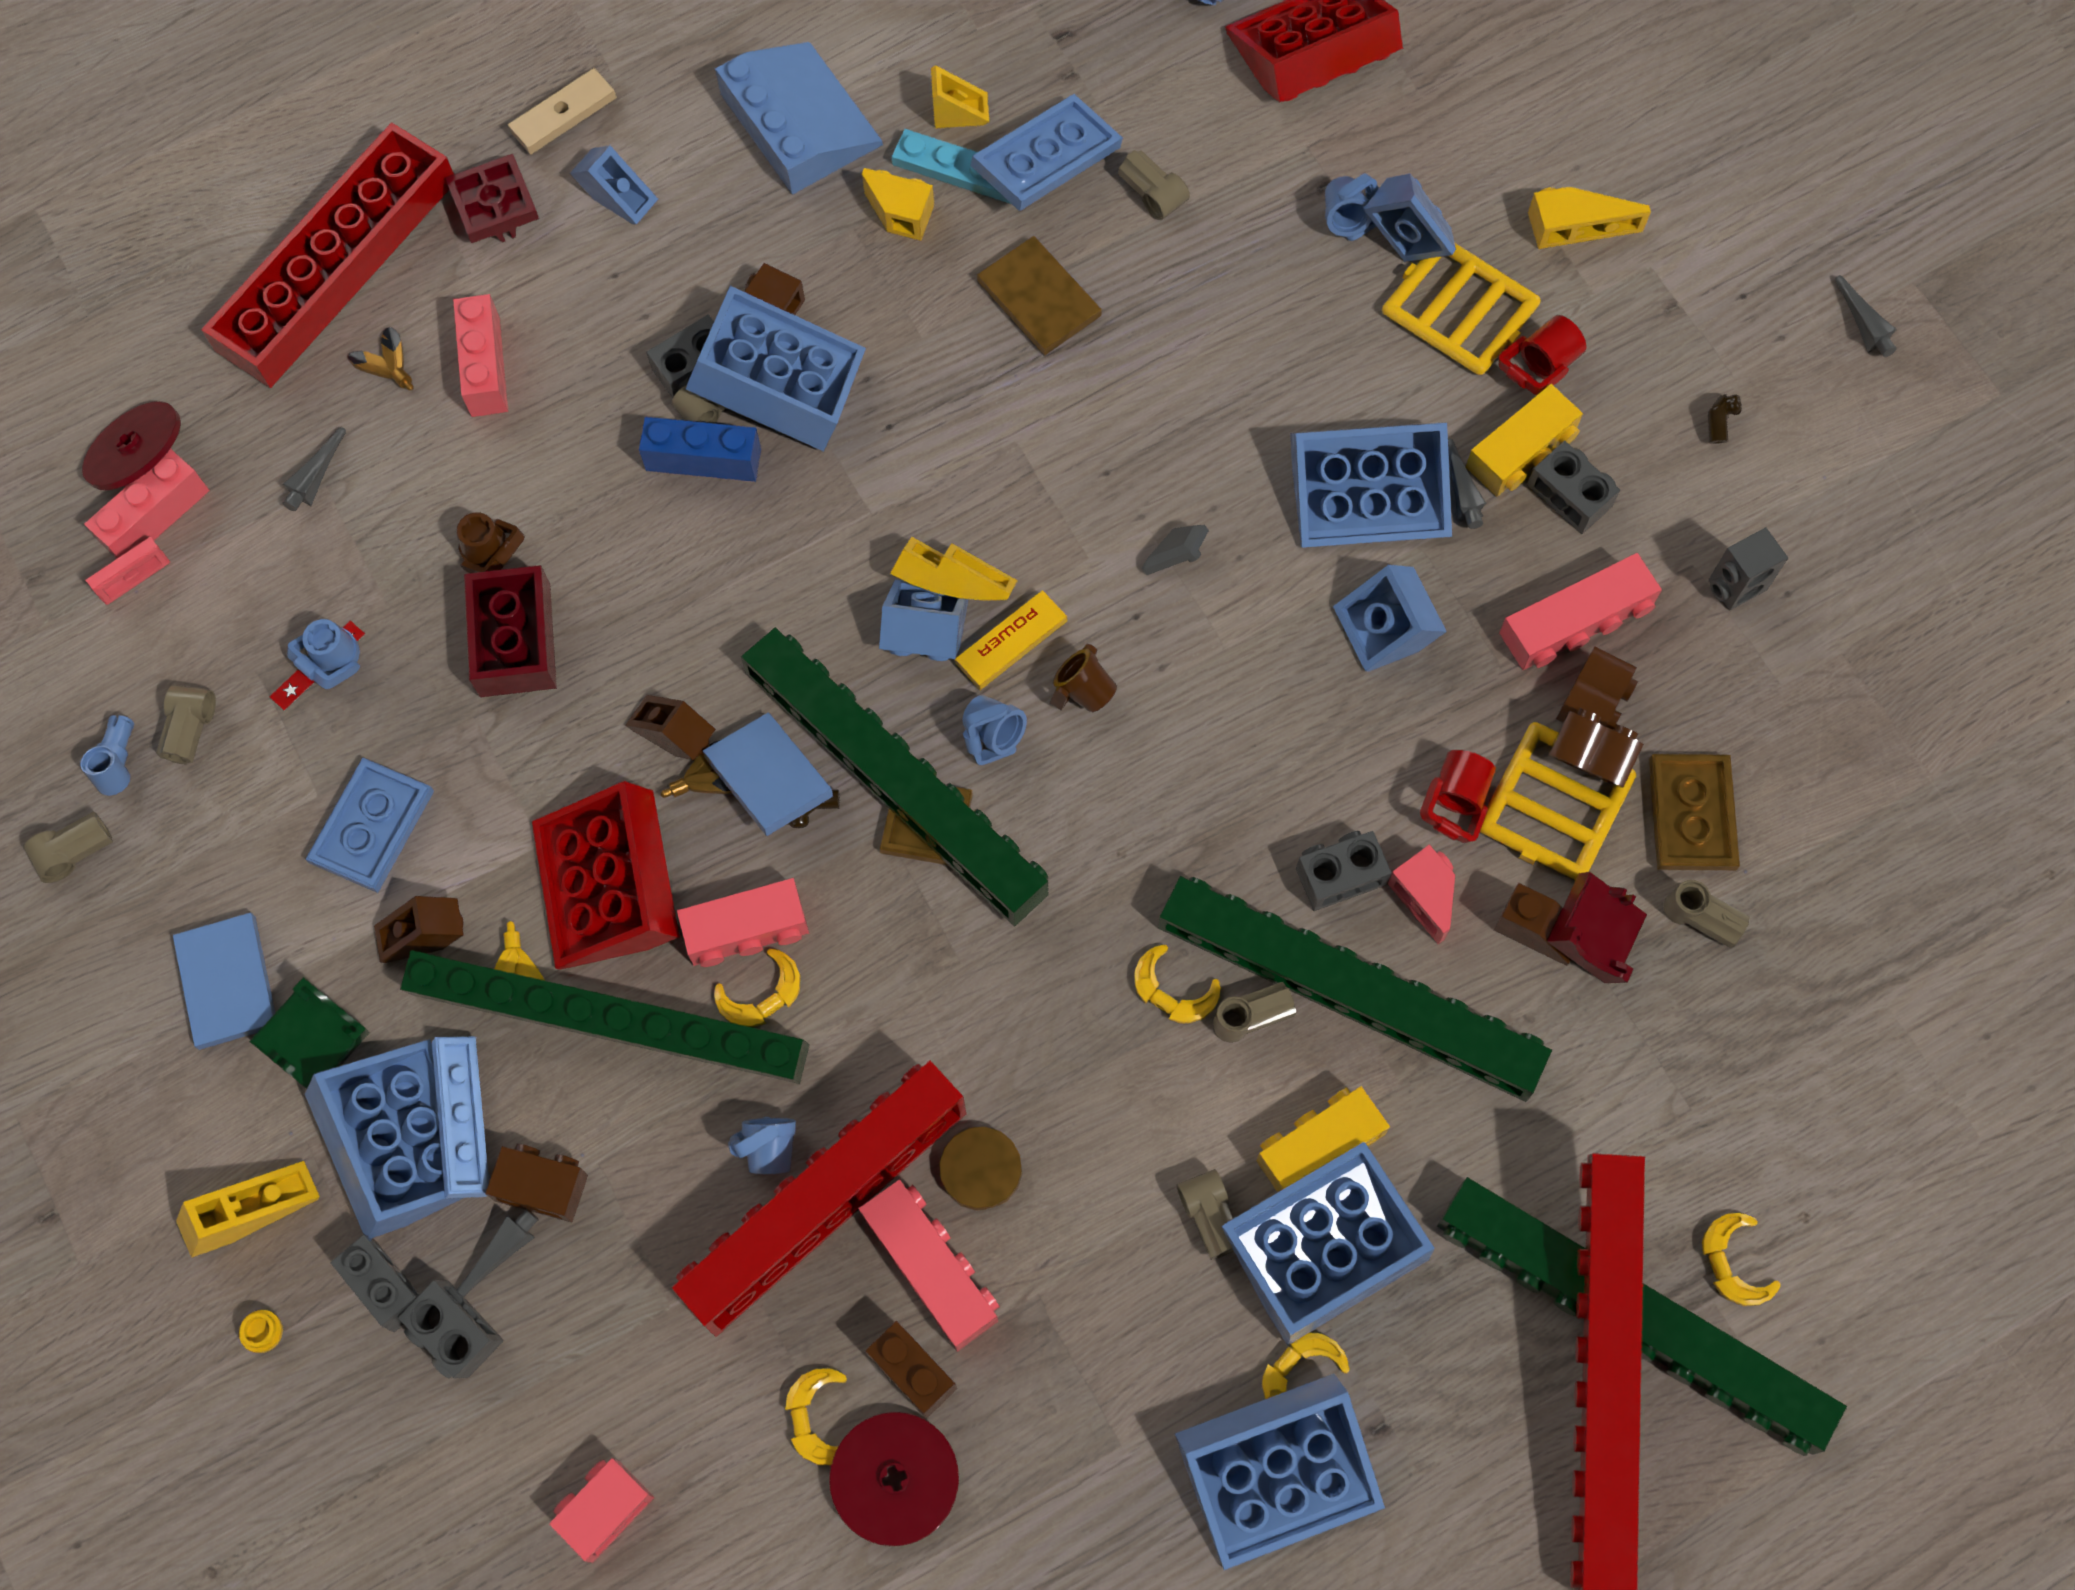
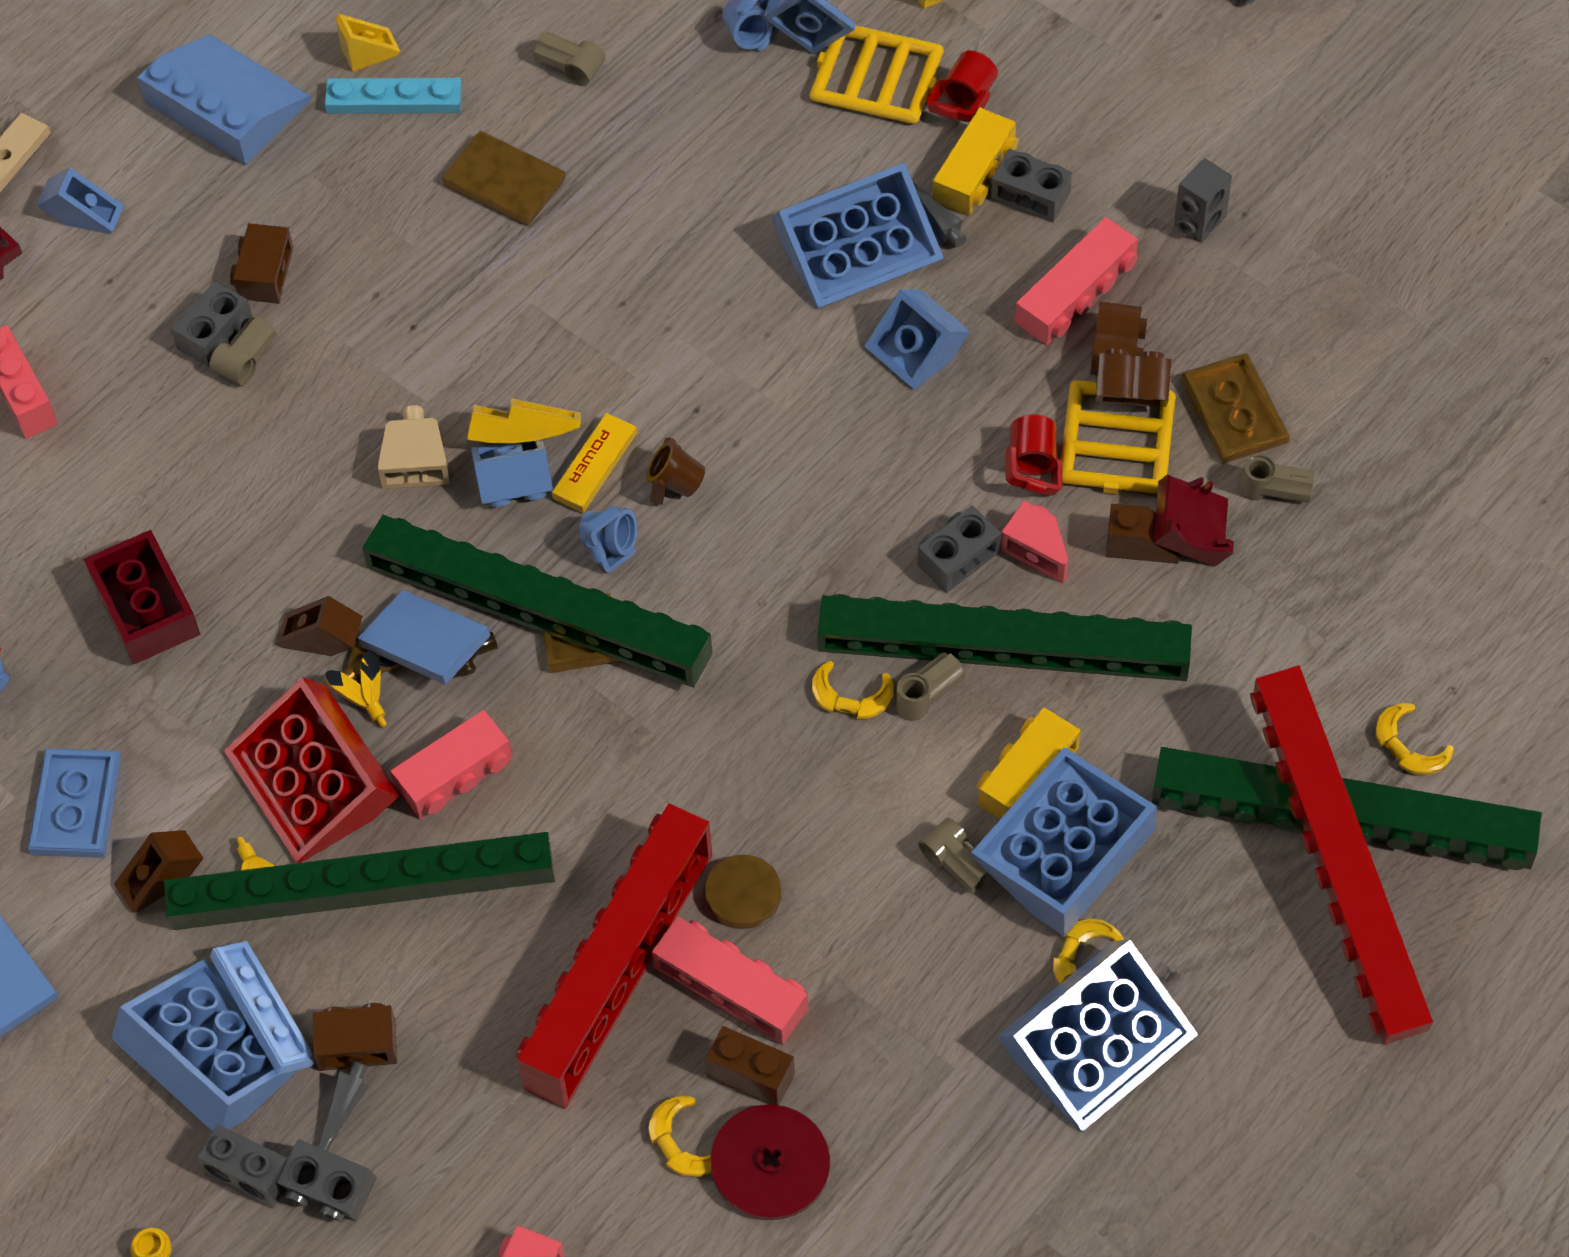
camera: 20 degrees left, 10 degrees down
(244, 1208) = (92, 1151): yellow slope -> none
(309, 1034) = (93, 988): dark green piece -> none
(485, 543) = (84, 535): reddish brown piece -> none
(687, 812) = (364, 694): none -> yellow piece
(700, 449) = (252, 395): blue brick -> none
(766, 1144) = (548, 933): medium blue piece -> none
(776, 368) = (296, 306): medium blue slope -> none
(787, 992) = (511, 808): yellow piece -> none
(834, 565) = (412, 452): none -> tan torso
(899, 202) = (347, 139): yellow slope -> none
(1046, 152) = (464, 57): medium blue plate -> none
(1177, 547) = (710, 339): dark grey piece -> none
(1718, 417) = (1130, 92): dark brown arm -> none

